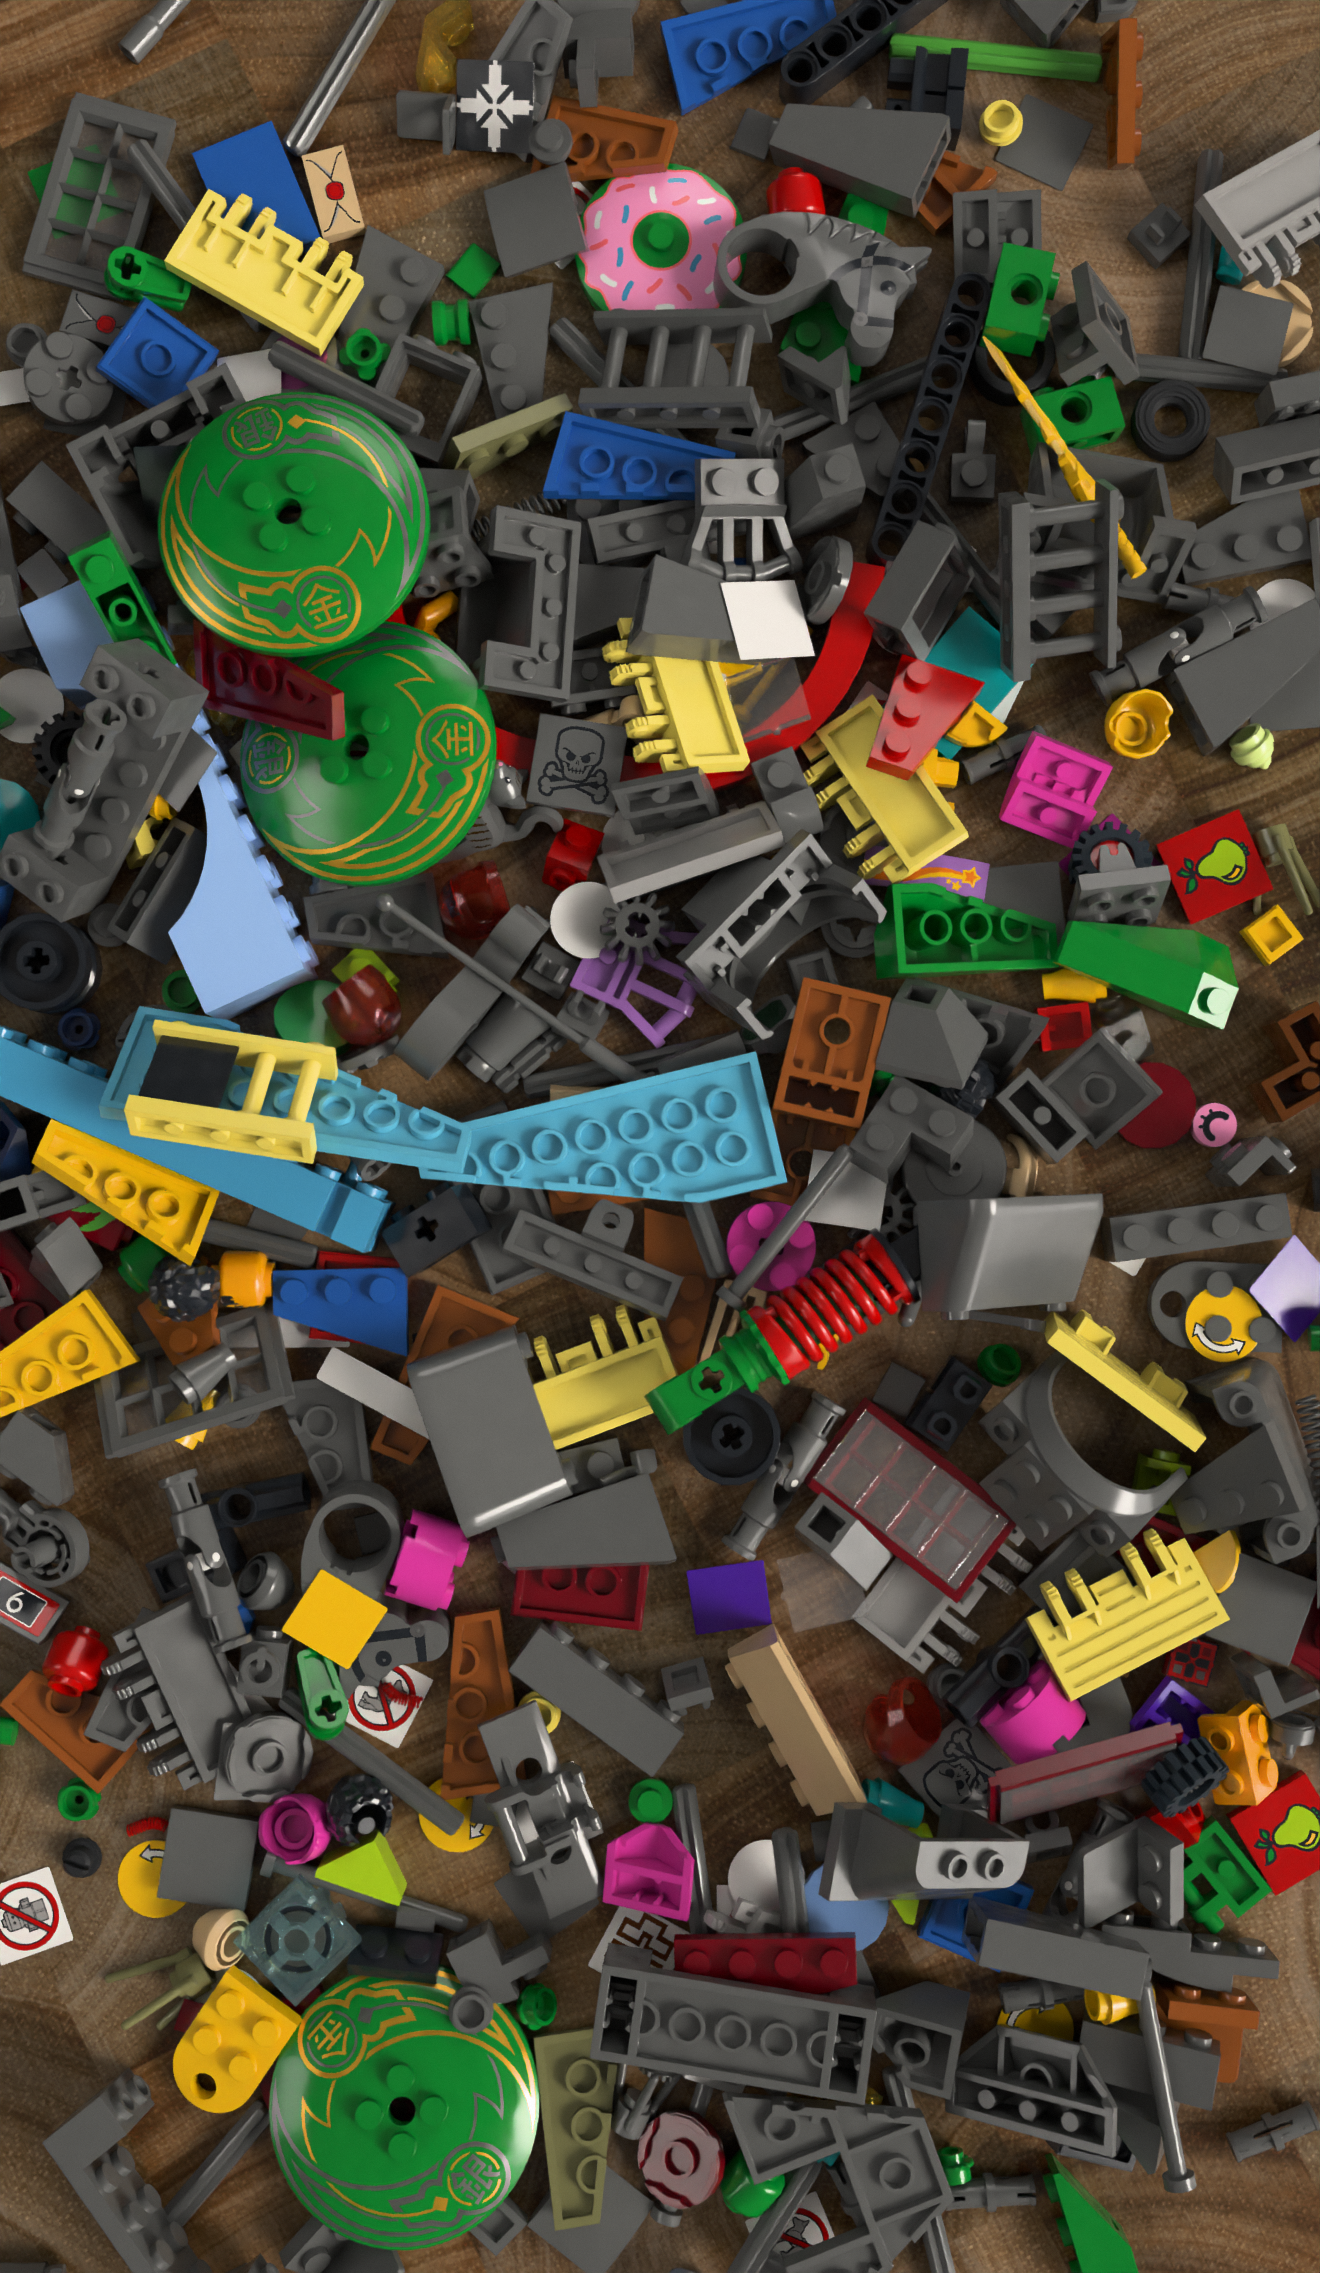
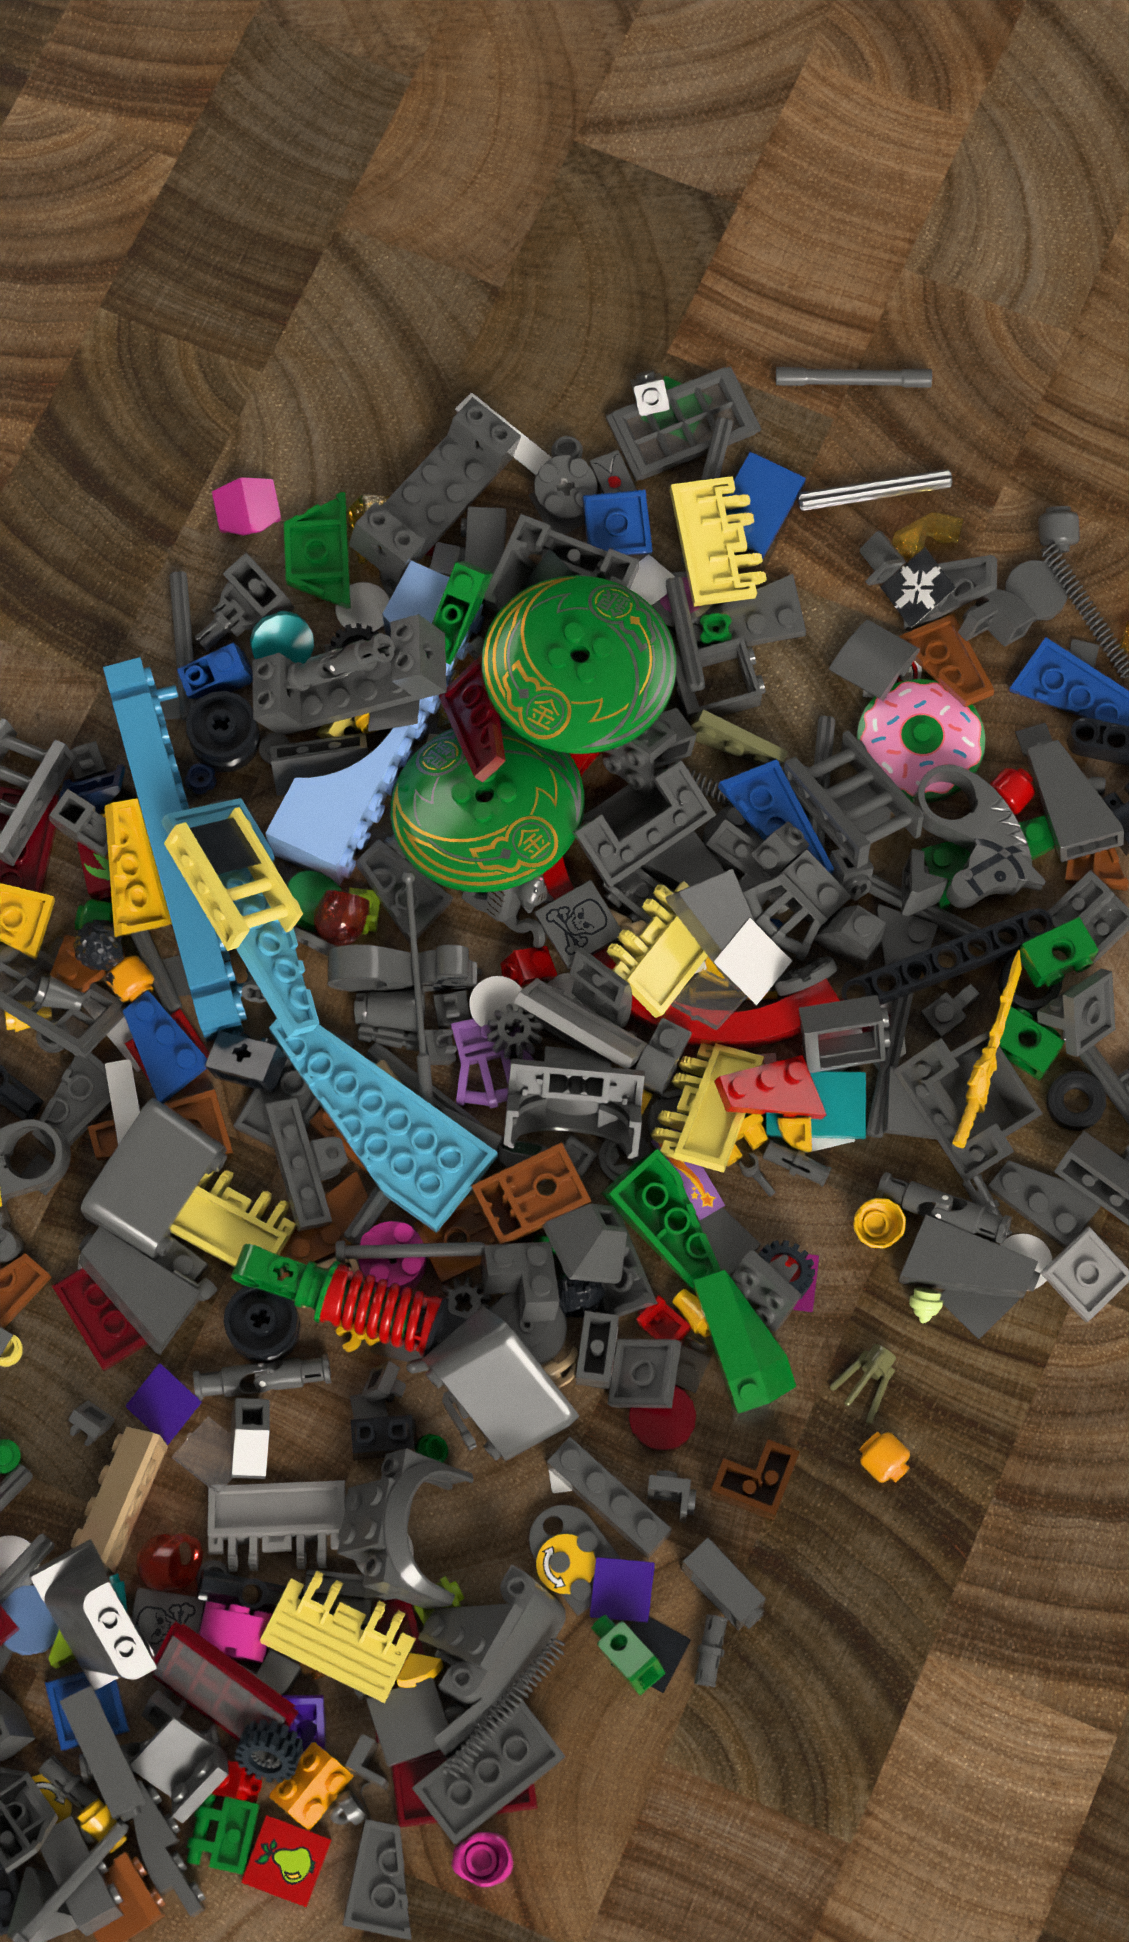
camera: 50 degrees right, 15 degrees down
(36, 199) = (650, 393): none -> bracket
(64, 1260) = (61, 871): dark grey slope -> none
(147, 279) = (656, 487): green piece -> none
(179, 993) = (265, 814): green plate -> none
(334, 194) = (795, 542): tan tile -> none
(426, 1561) = (46, 1207): dark pink brick -> none
(435, 612) = (601, 781): light orange arm -> none
(451, 322) = (776, 660): green wheel -> none
(473, 270) = (819, 649): green piece -> none
(474, 901) = (456, 927): clear red helmet -> none
(513, 345) = (794, 705): dark grey wing -> none
(551, 141) = (923, 632): dark grey plate -> none
(597, 1696) = (43, 1373): dark grey brick -> none
(671, 488) = (780, 849): none -> dark grey bracket
(851, 1200) = (456, 1276): white sticker -> none
(892, 1360) = (382, 1383): none -> dark grey tile
(911, 1499) = (307, 1461): clear piece -> none
(980, 805) = (756, 1174): none -> dark grey hand
(1020, 563) = (901, 1071): dark grey fence -> none
(1054, 790) = (800, 1206): dark pink slope -> none
(1149, 1393) = (481, 1490): light yellow hinge -> none
(1192, 1662) = (346, 1713): tile -> none
(1213, 1125) = (682, 1461): bright pink tile -> none
(1214, 867) = (835, 1338): red tile -> none
(1271, 935) = (825, 1406): yellow tile -> none

